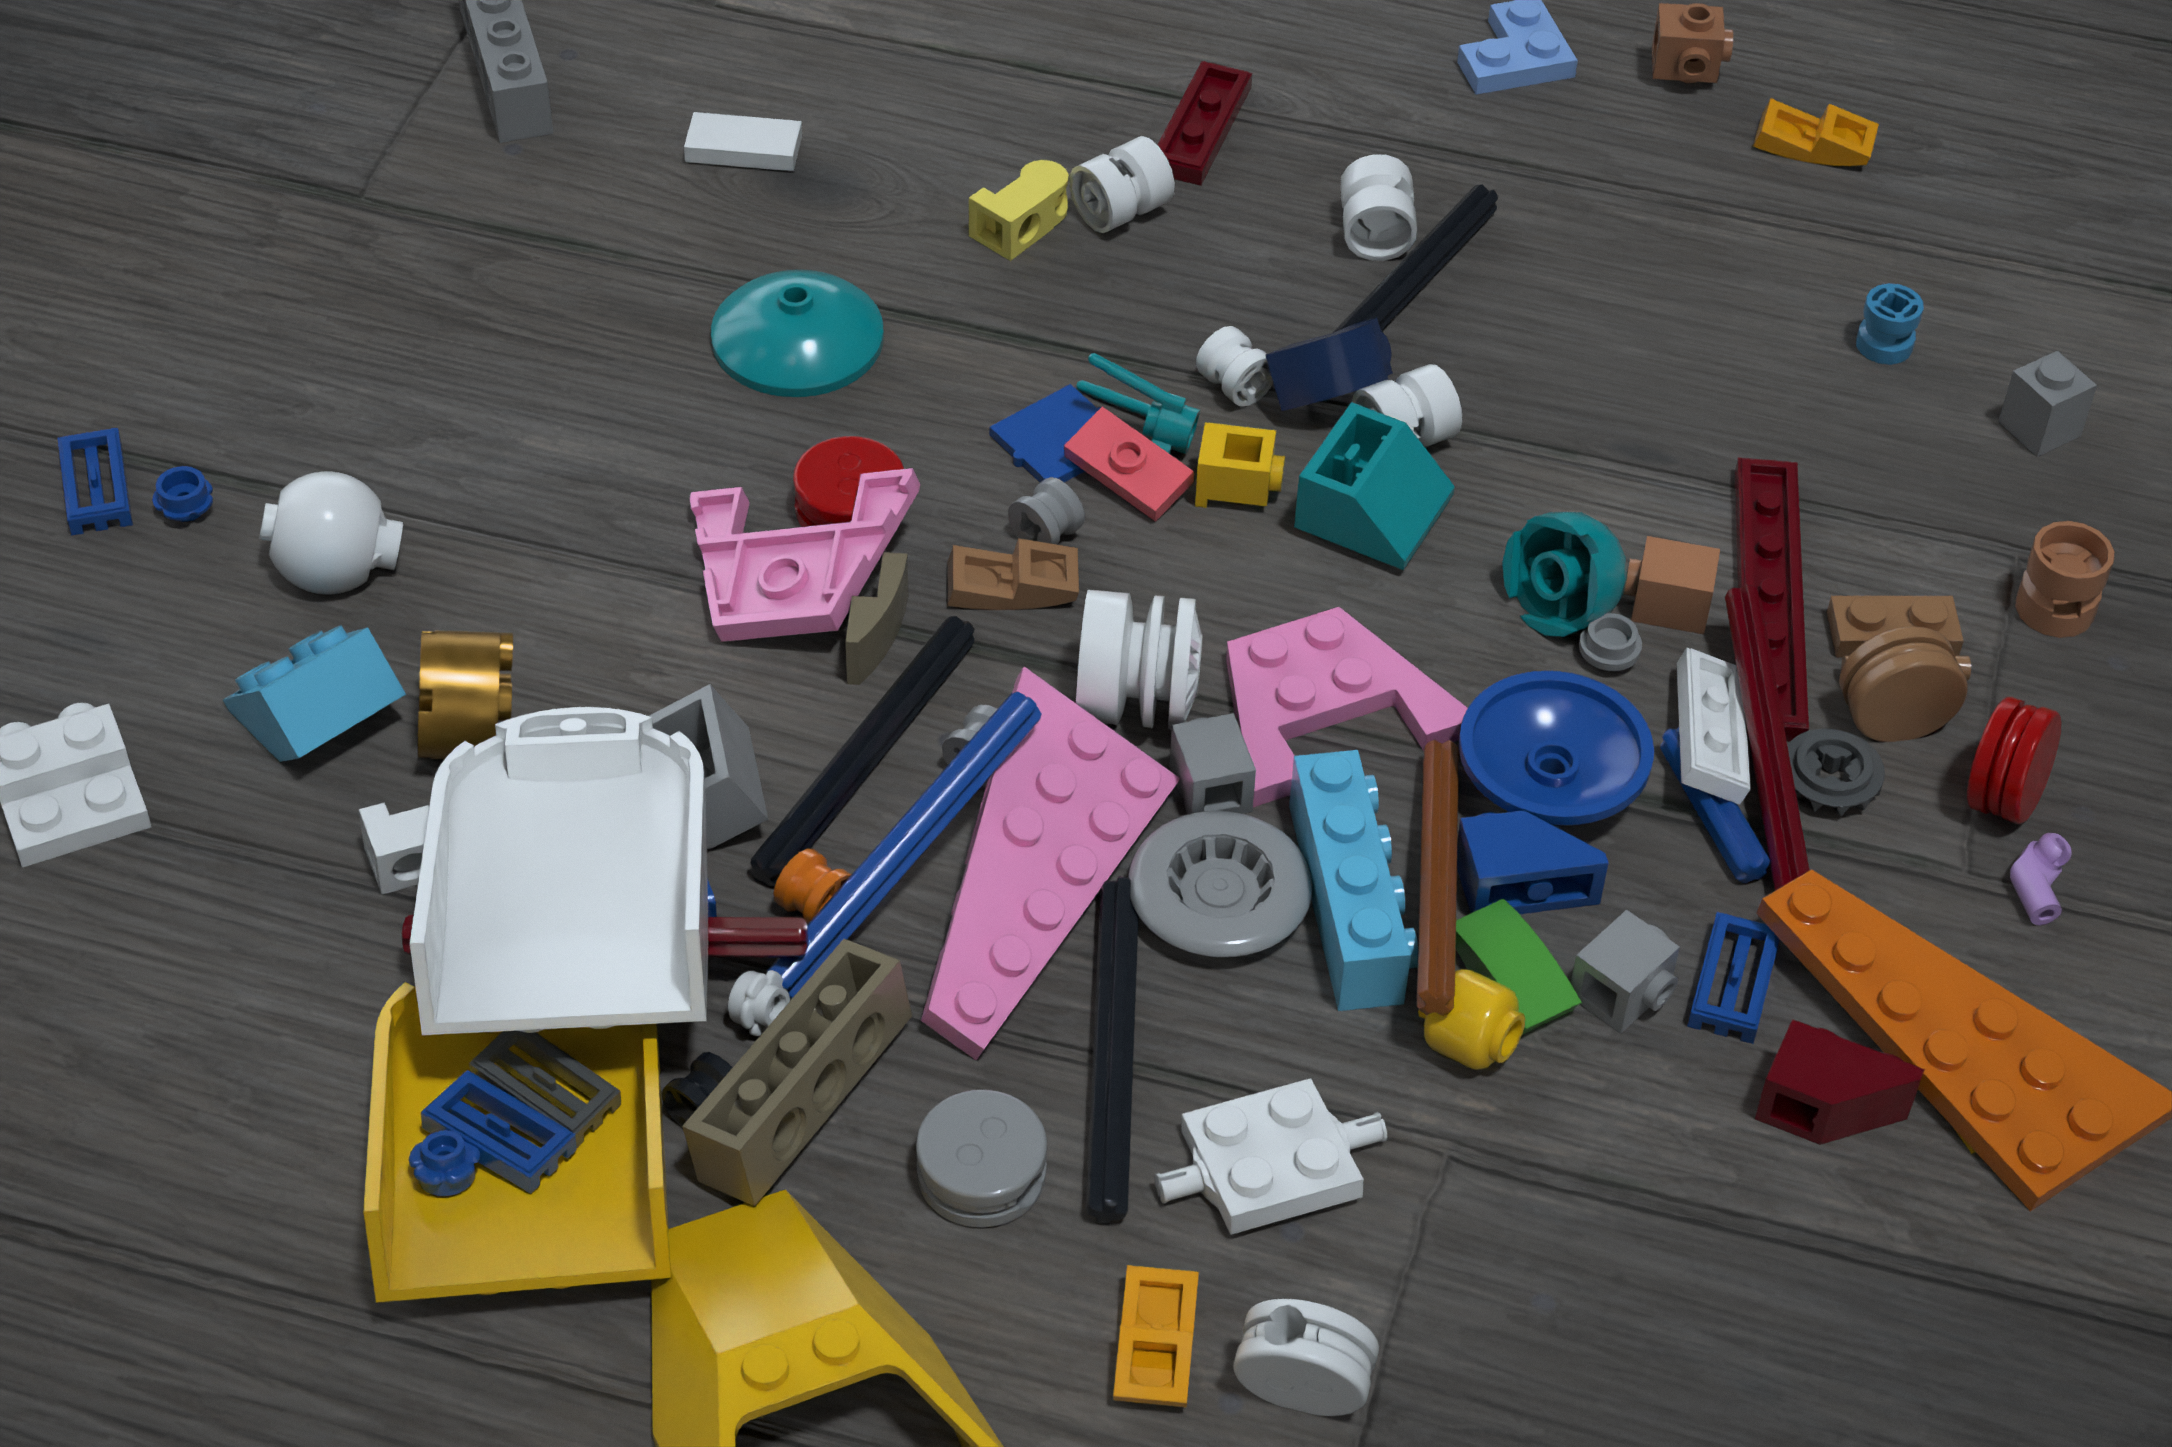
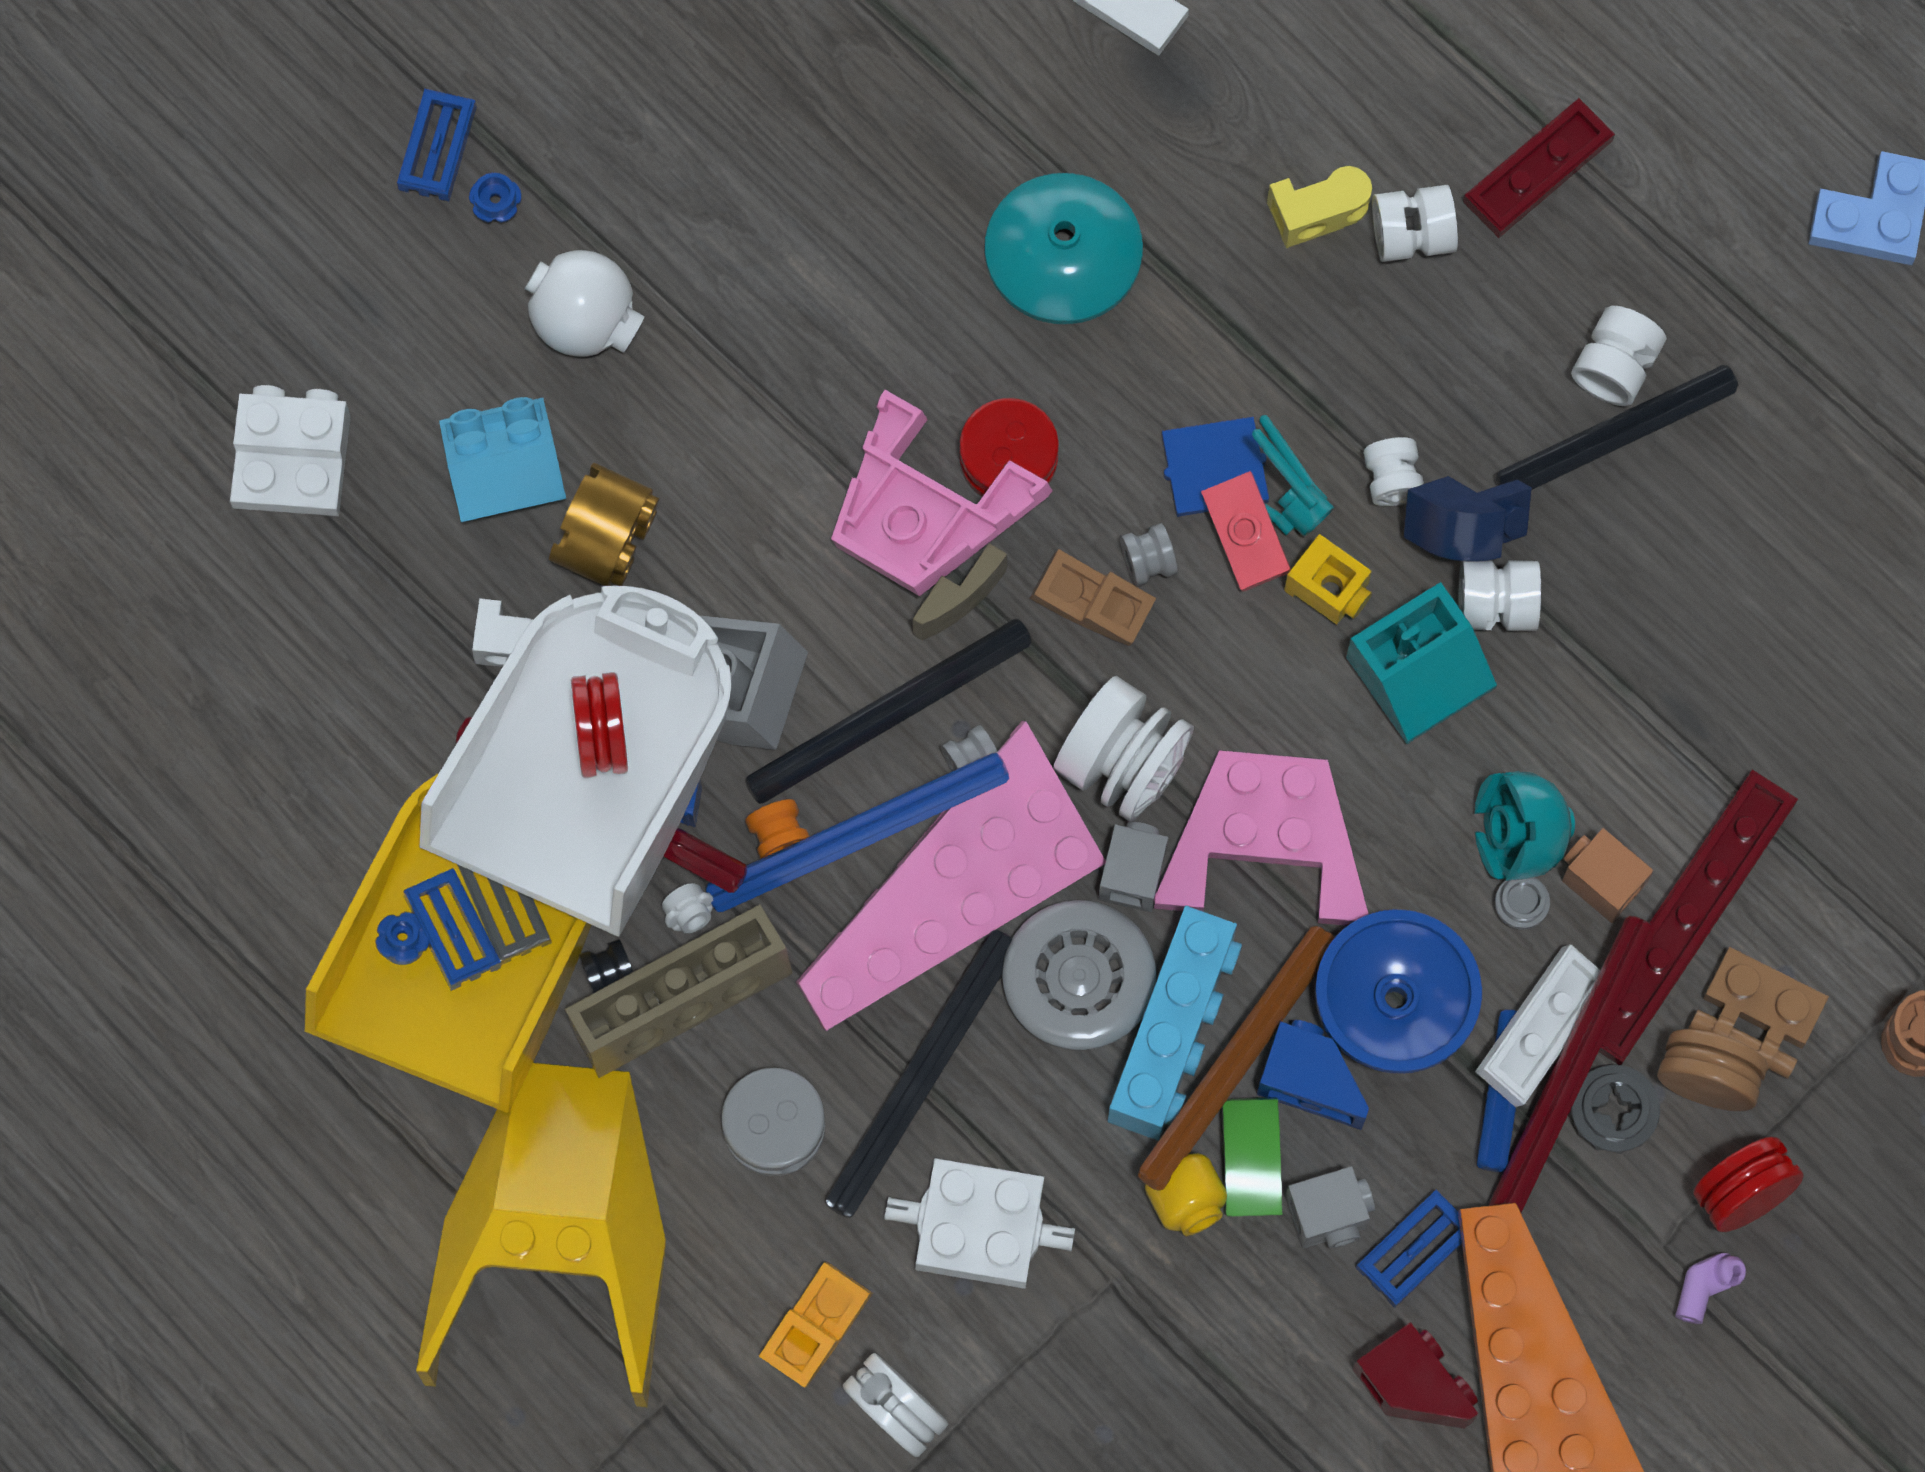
camera: 30 degrees right, 25 degrees up
(569, 828) = (599, 724): none -> red head

